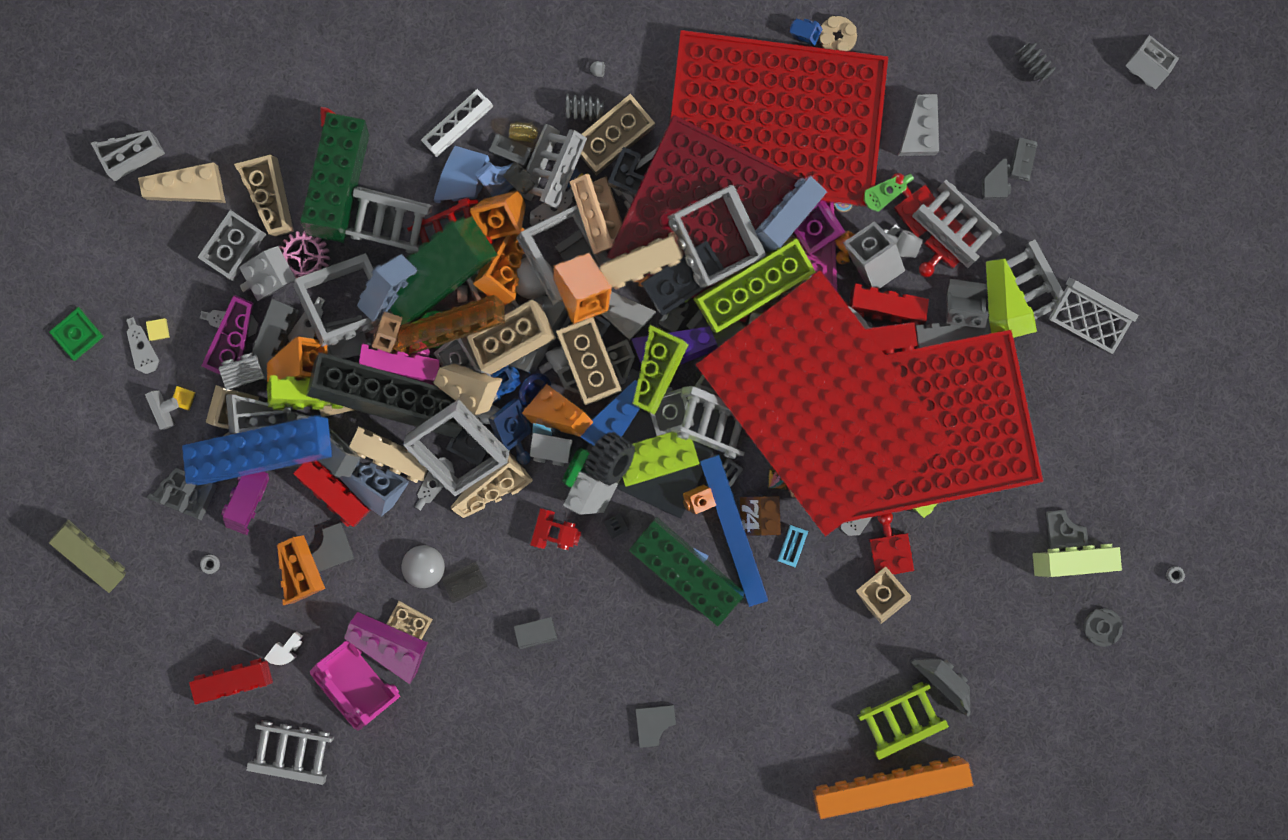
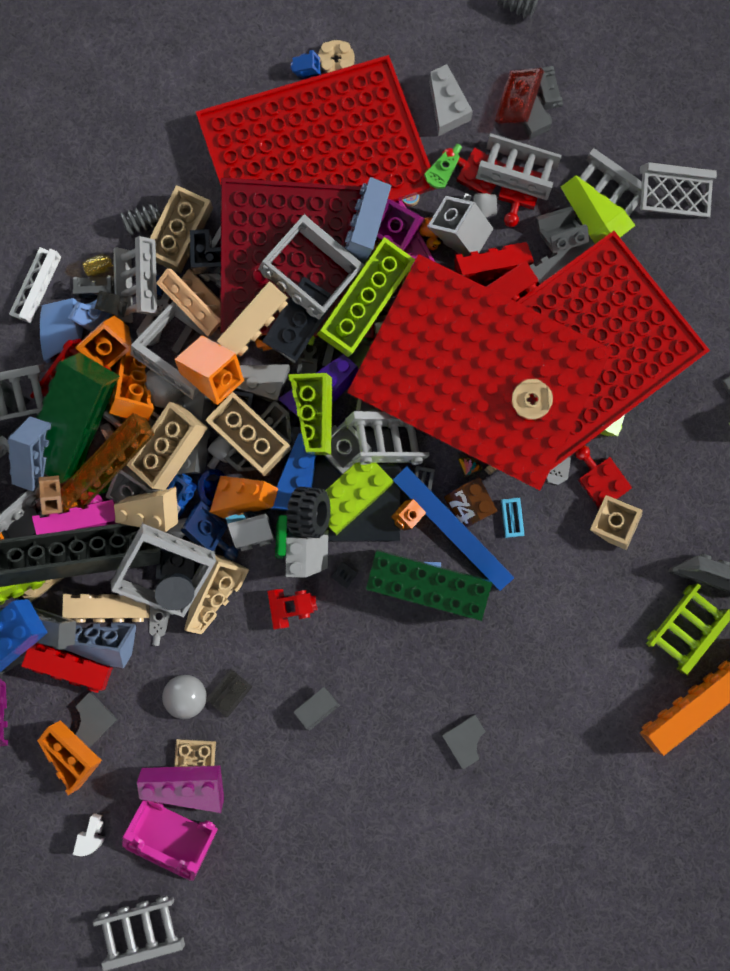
camera: 20 degrees left, 5 degrees down
(231, 681) = (53, 891): red wedge -> none
(458, 471) = (174, 591): none -> black tile
(597, 68) = (139, 181): light grey hinge -> none
(846, 457) = (540, 391): none -> tan plate
(991, 155) = (519, 95): none -> clear red tile

